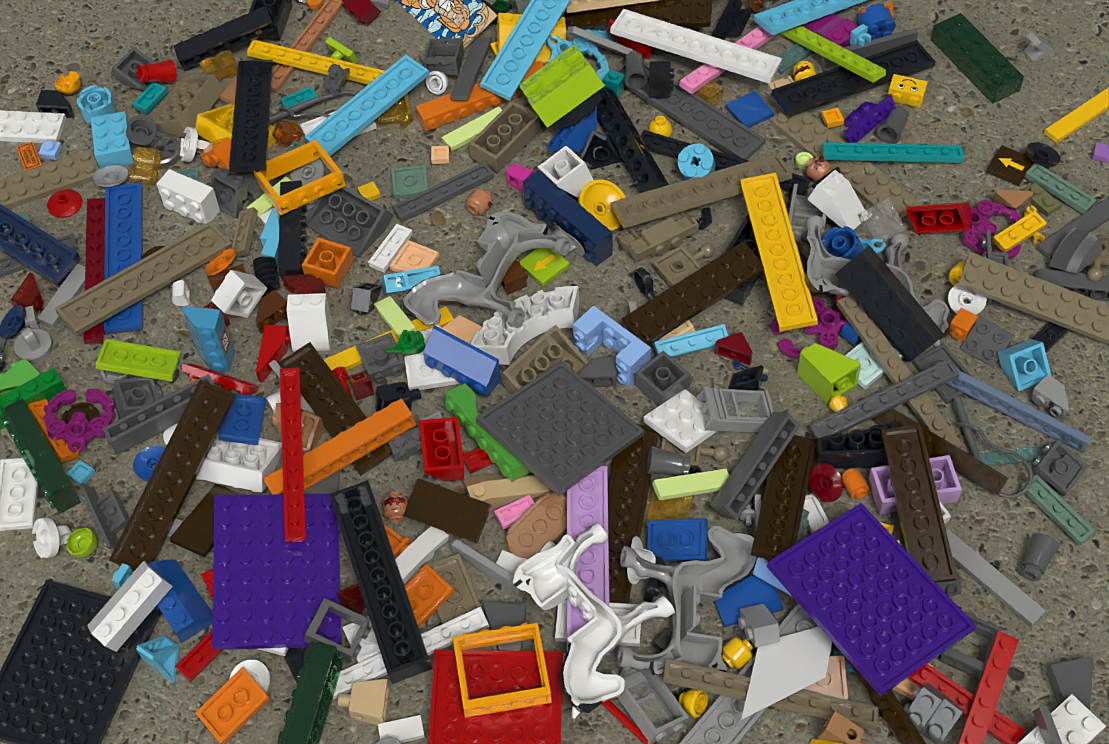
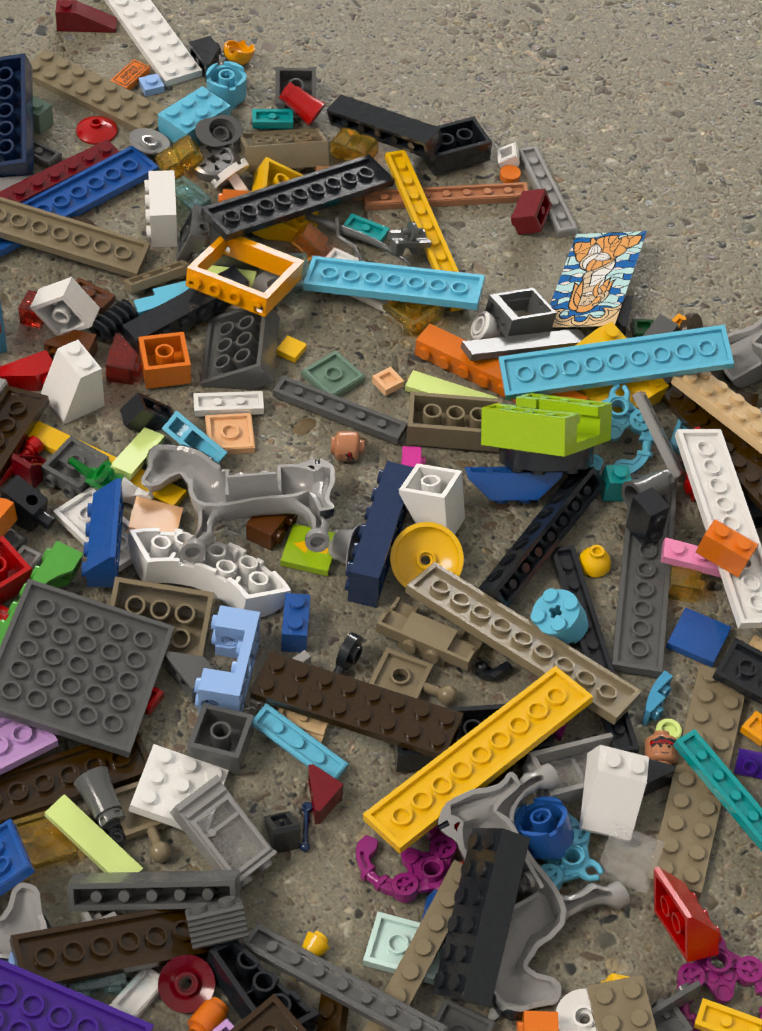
camera: 50 degrees right, 5 degrees down
(180, 293) = (45, 269): white brick -> none
(221, 262) = (105, 279): orange dish -> none
(340, 51) = (456, 228): lime tile -> none
(599, 151) = (504, 518): black slope -> none
(600, 296) = (295, 622): none -> blue brick
(718, 52) = (726, 547): none -> orange slope
(775, 146) = (656, 698): none -> dark azure slope
(806, 439) = (216, 922): none -> dark grey brick
(827, 371) = (344, 905): lime slope -> none

